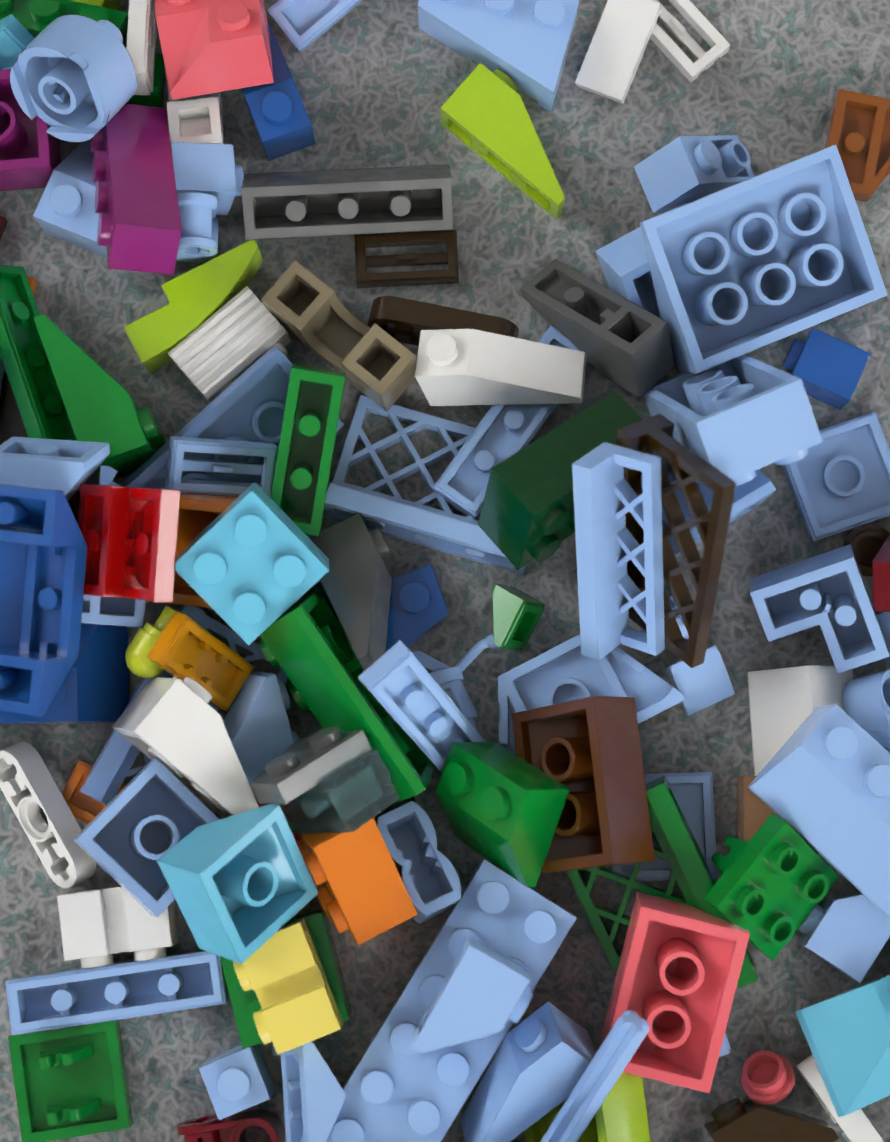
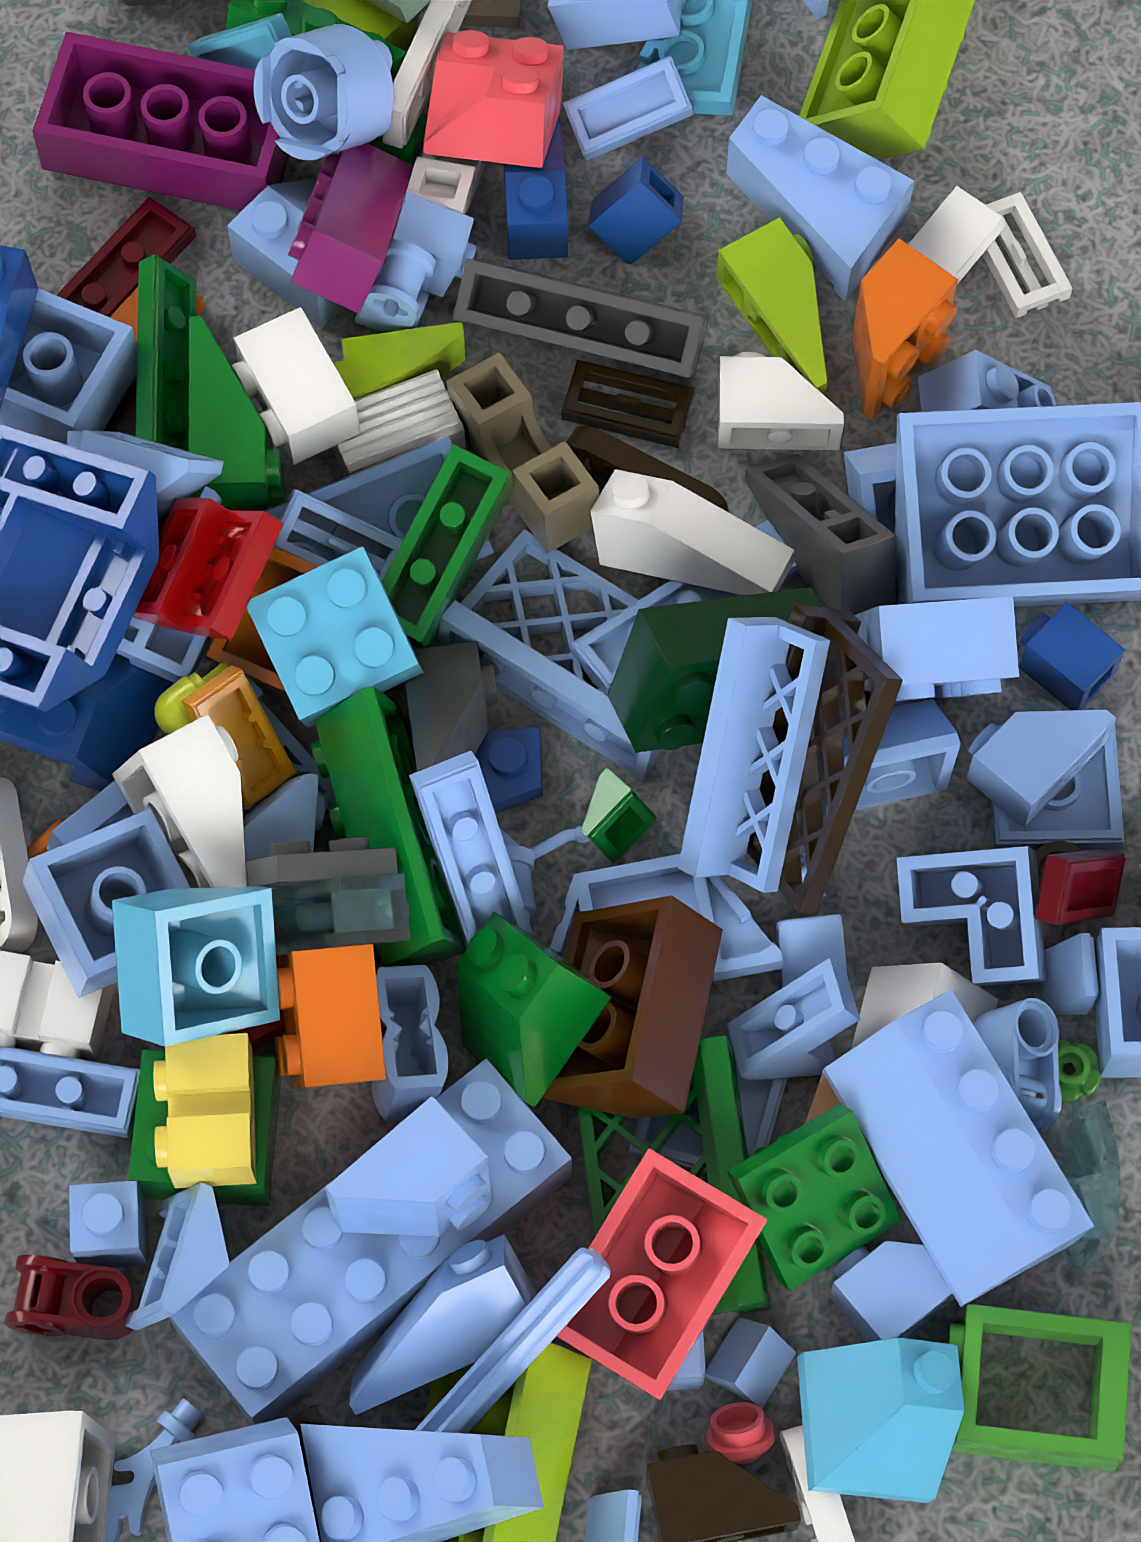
camera: 15 degrees right, 15 degrees down
(140, 345) = (295, 386): none -> white brick
(359, 88) = (636, 211): none -> blue panel
(523, 227) = (773, 407): none -> white slope
(602, 126) = (900, 324): none -> orange slope
(710, 748) = (793, 1026): none -> light blue slope
(755, 1017) = (750, 1361): none -> light blue slope
(829, 470) = (1035, 757): none -> light blue slope

